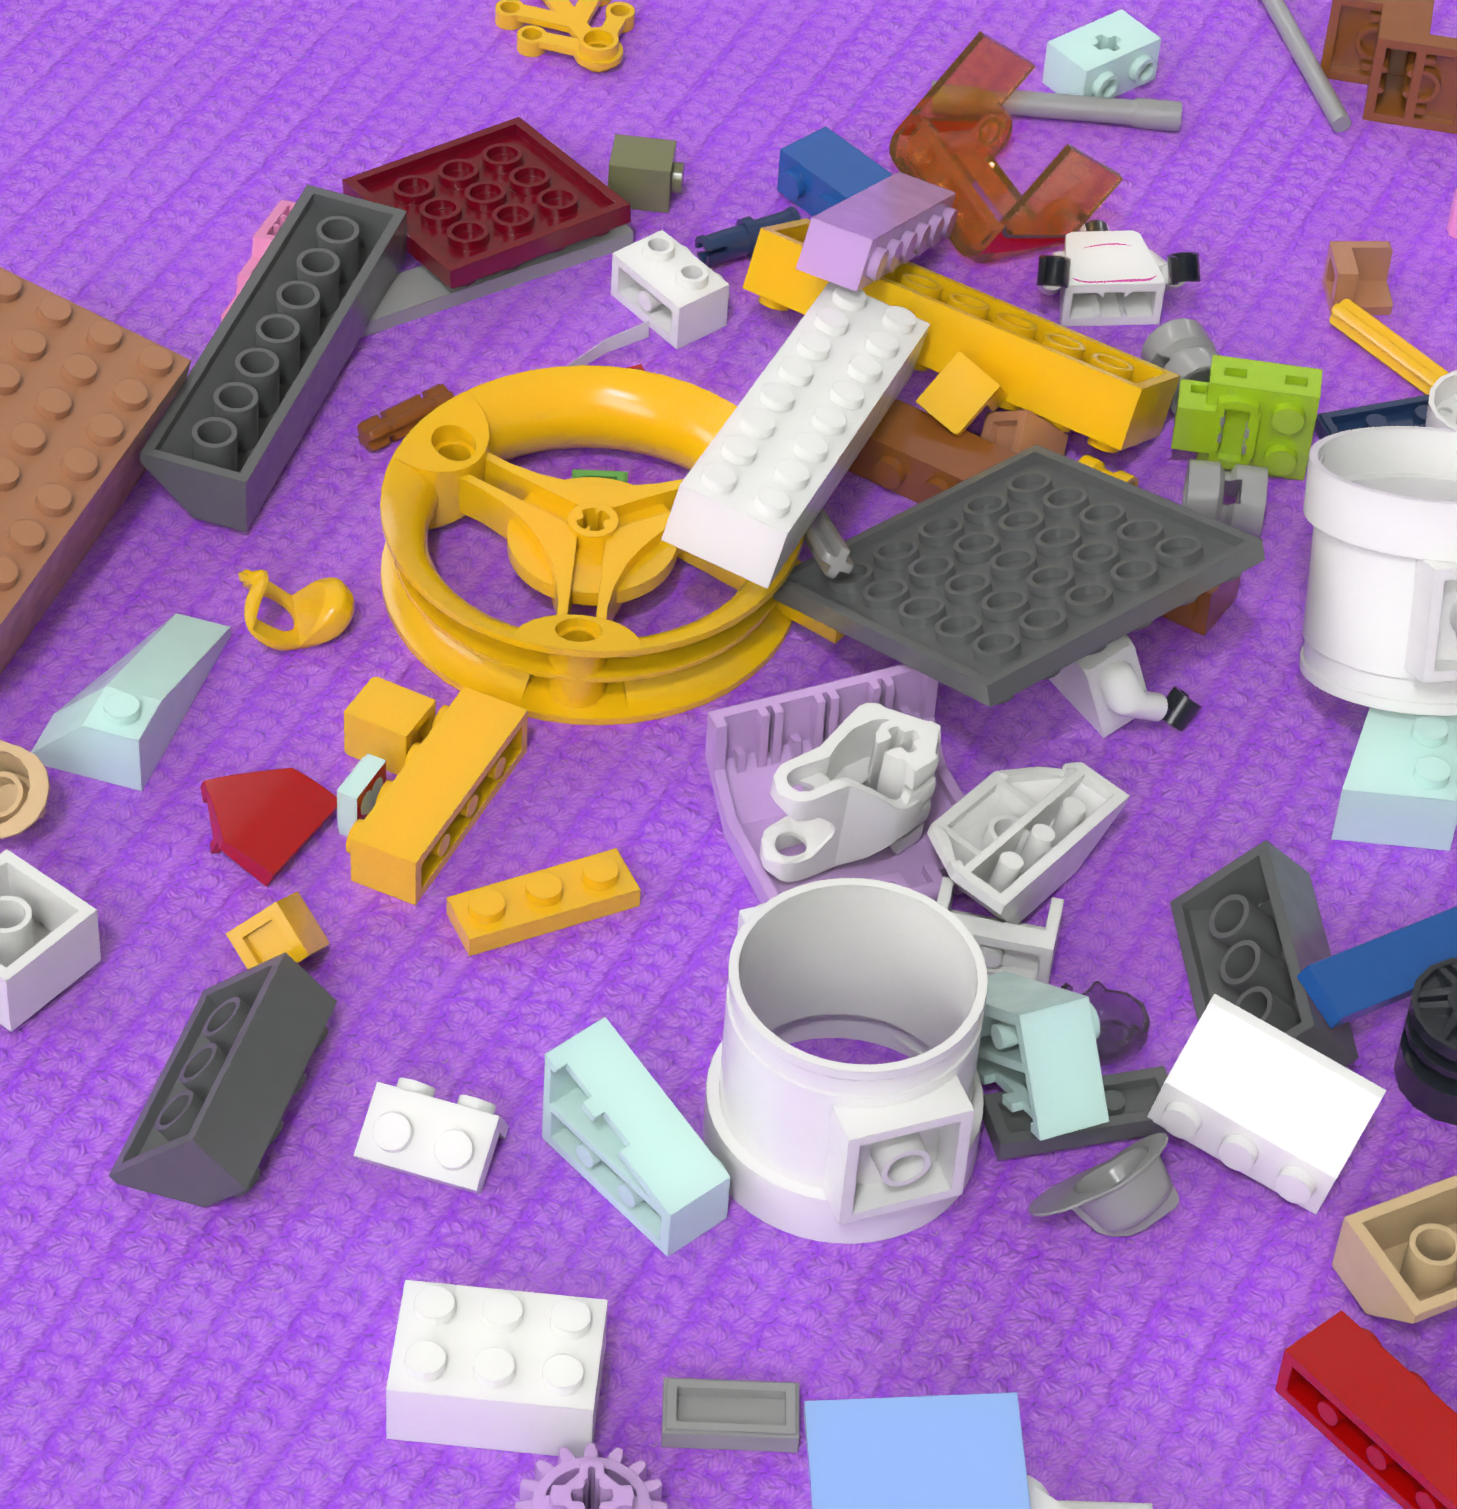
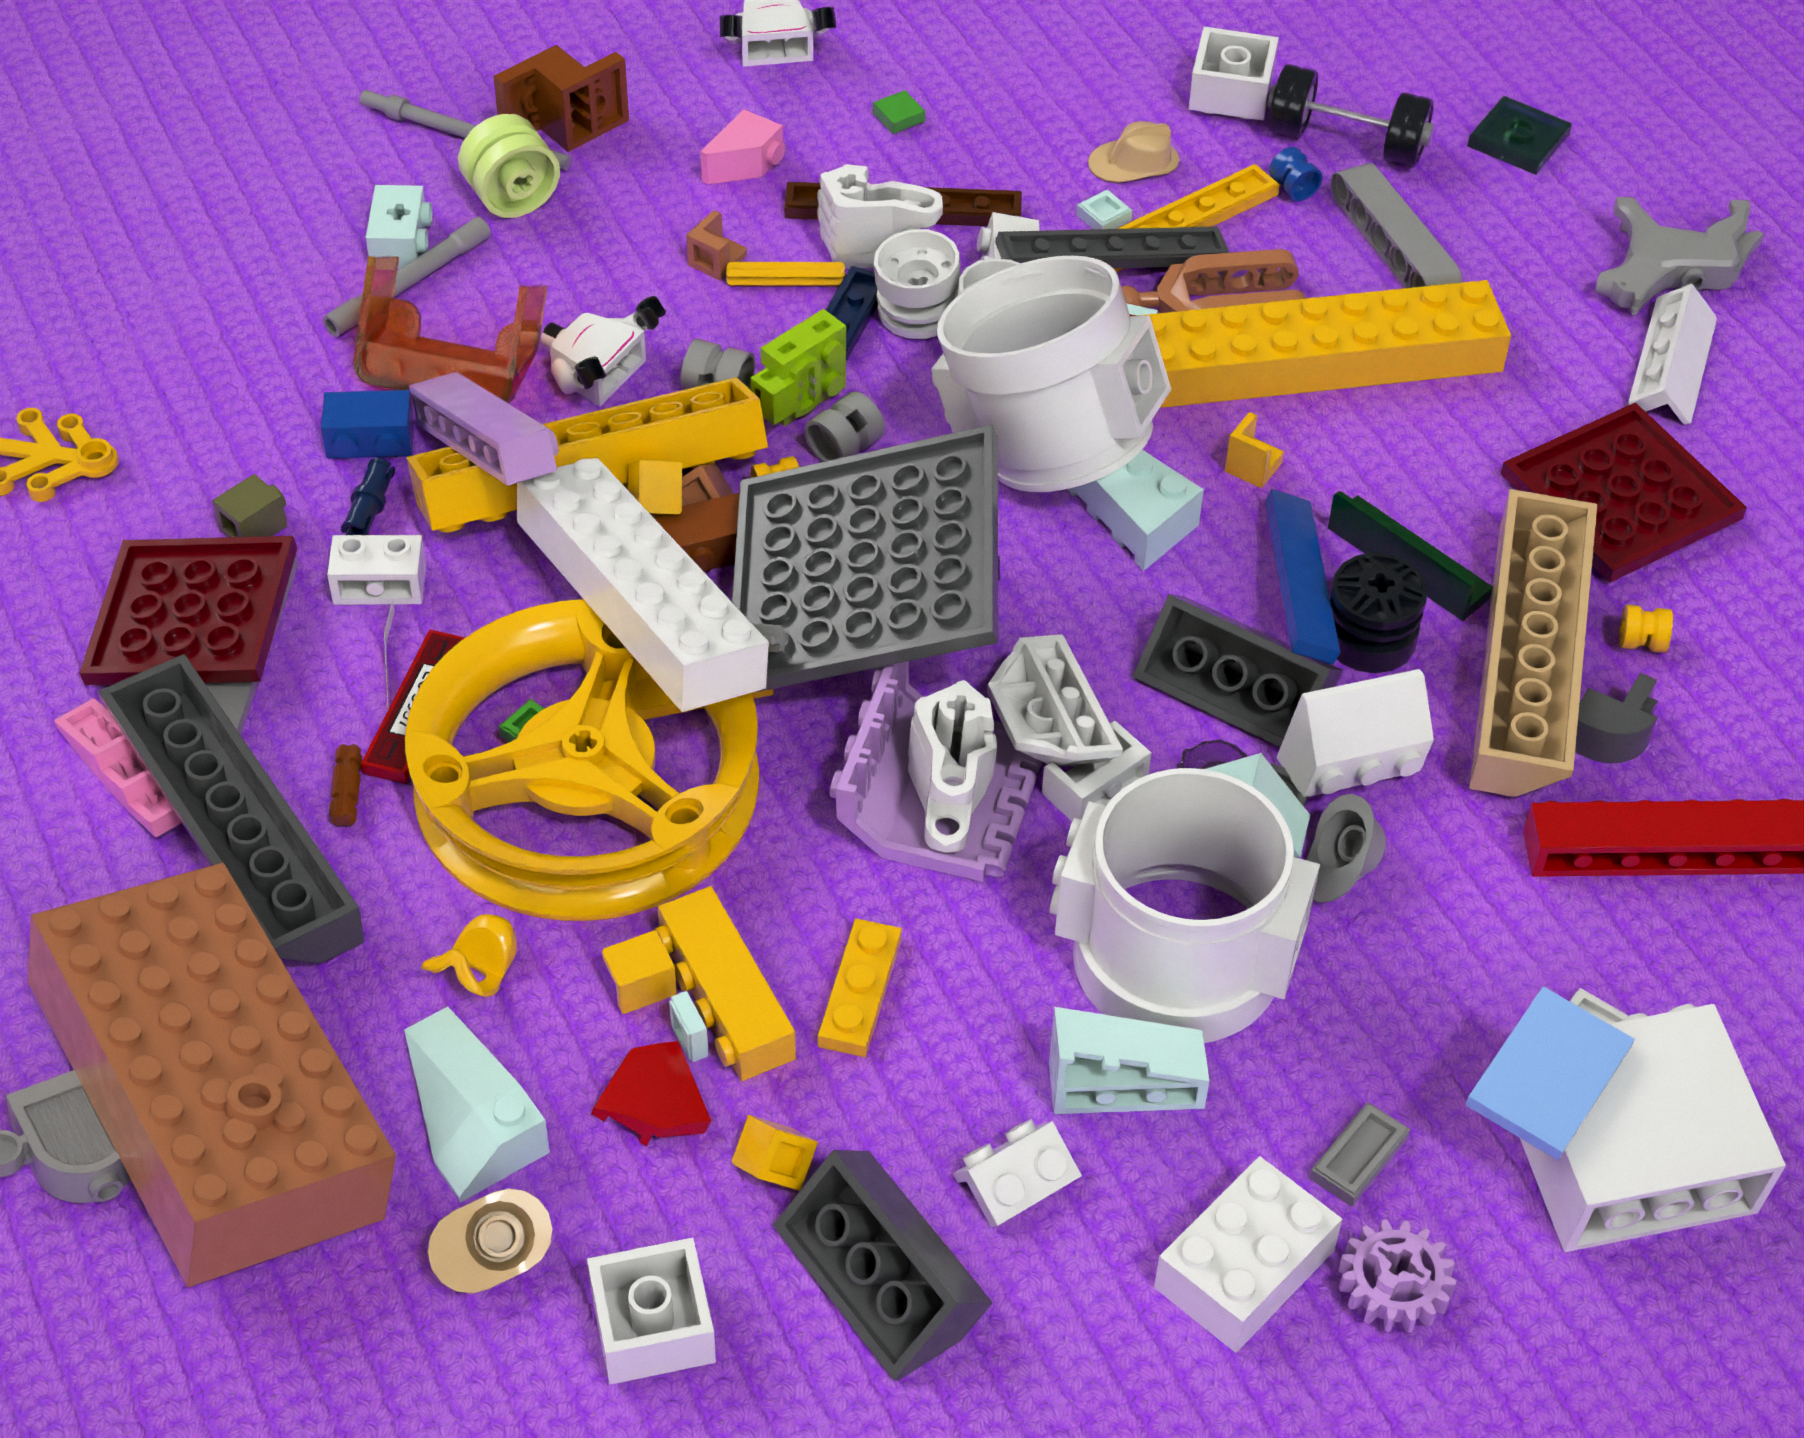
camera: 50 degrees left, 5 degrees up
(1259, 75) = (508, 165): none -> yellowish green wheel

